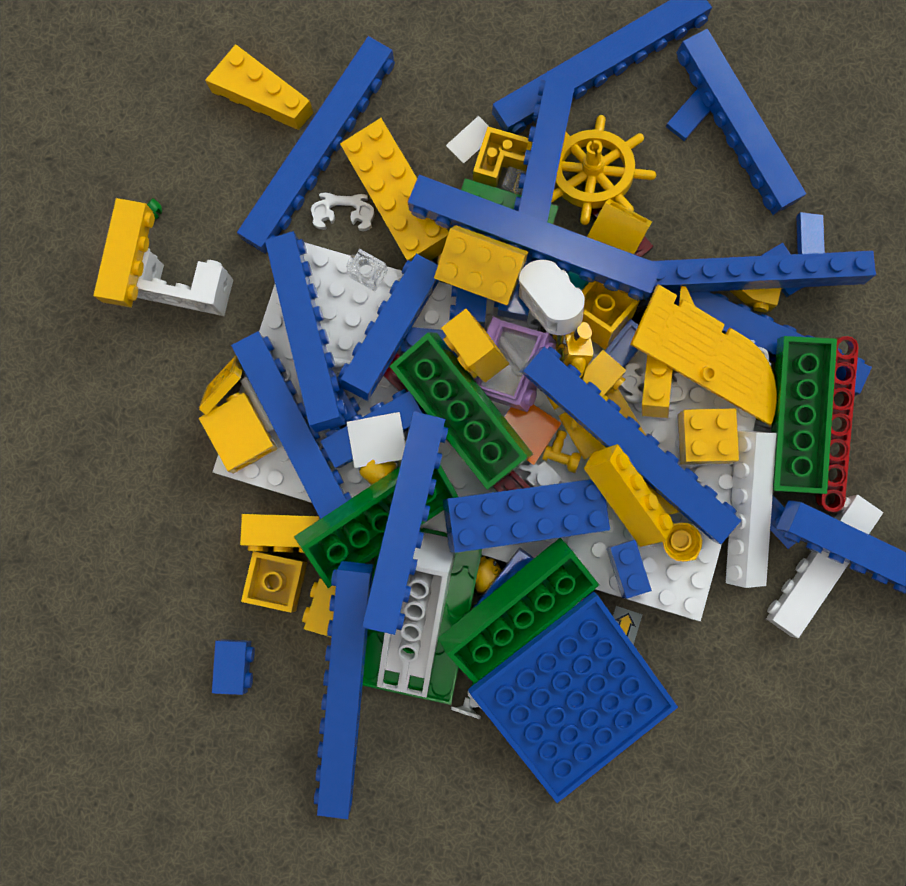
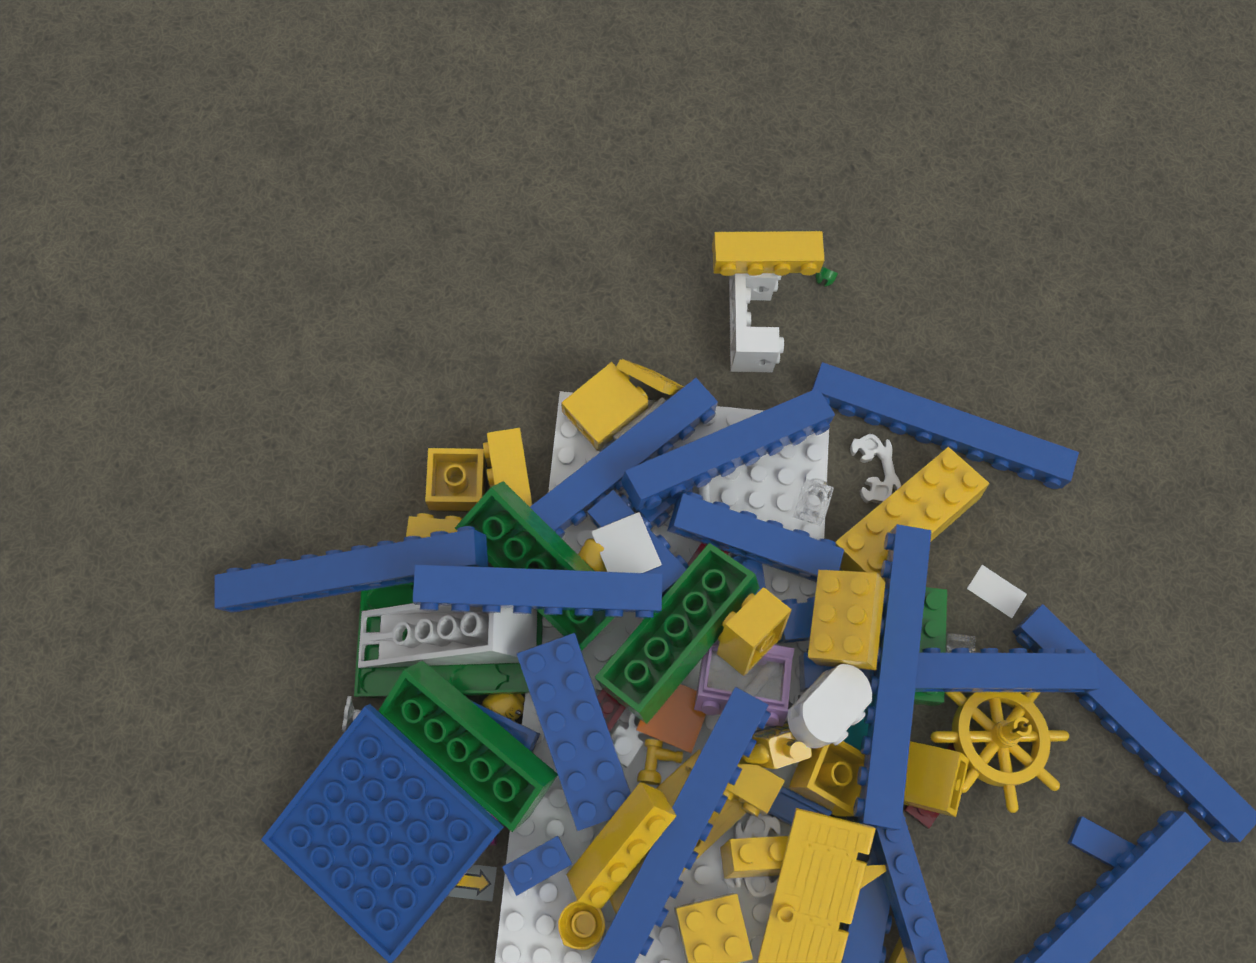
camera: 65 degrees right, 10 degrees down
(232, 666) = (359, 456): blue brick -> none
(255, 86) = (987, 345): yellow wedge -> none
(499, 151) = (988, 619): yellow brick -> none

